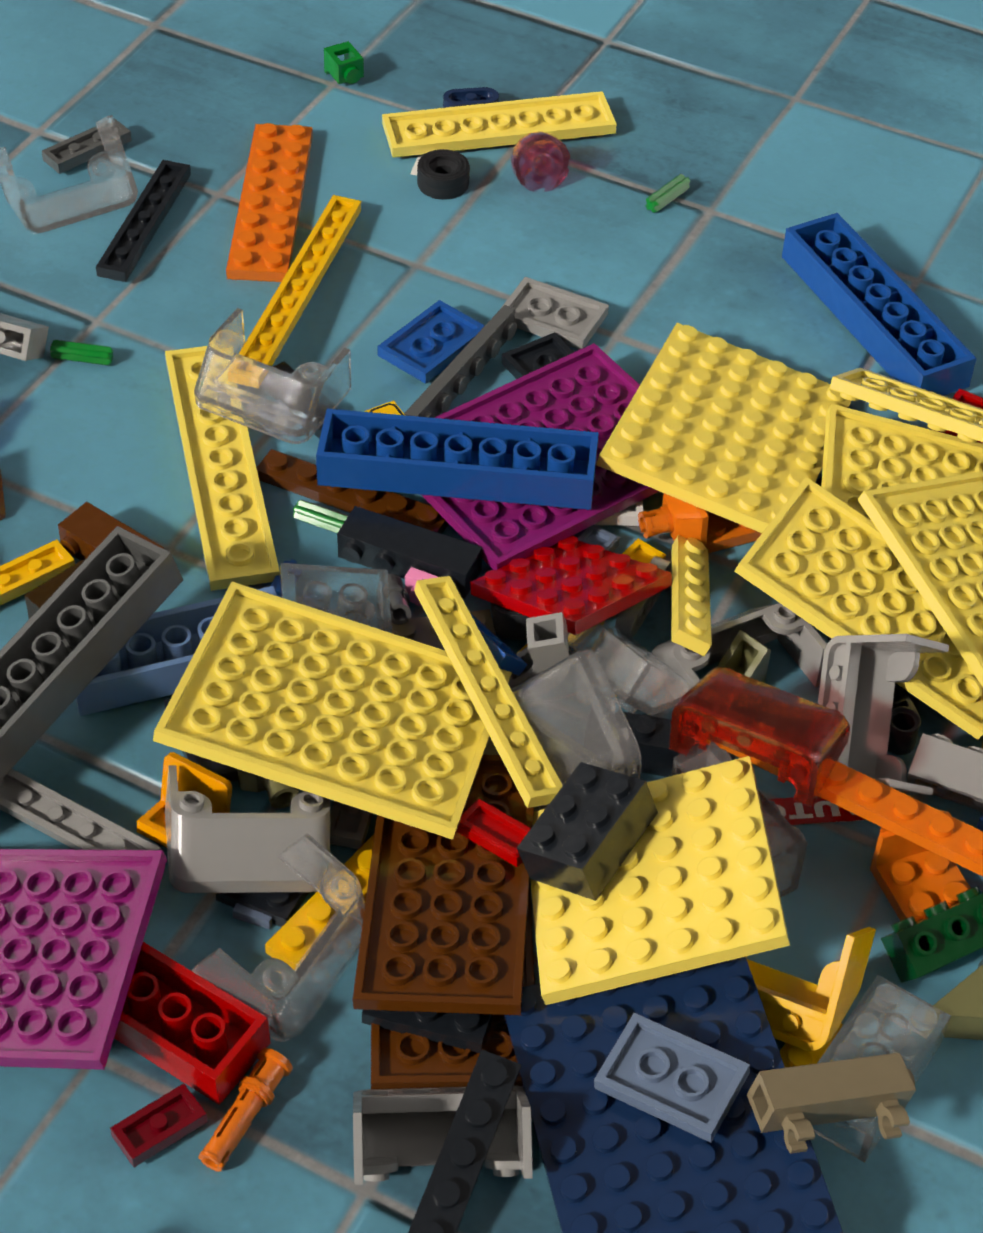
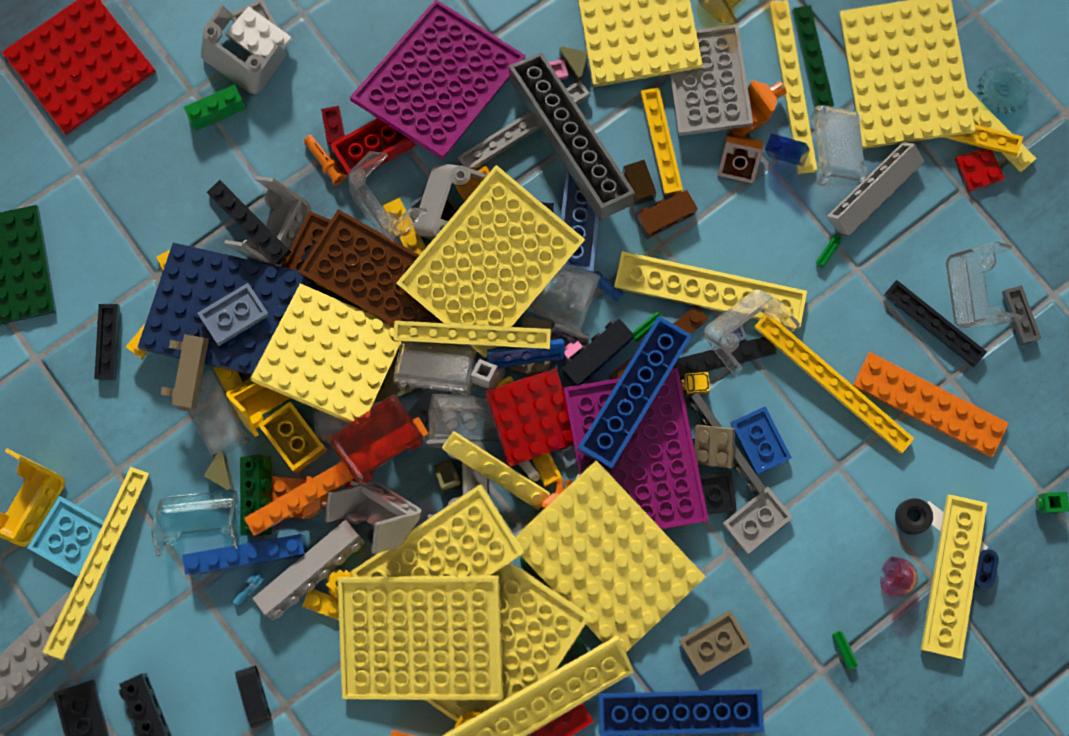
camera: 115 degrees right, 30 degrees up
(473, 369) = (714, 446): none -> dark tan plate
(493, 830) = (393, 306): red tile -> none
(587, 830) = (362, 334): black brick -> none
(755, 308) = (714, 642): none -> dark tan plate
(825, 903) = (293, 437): none -> yellow brick

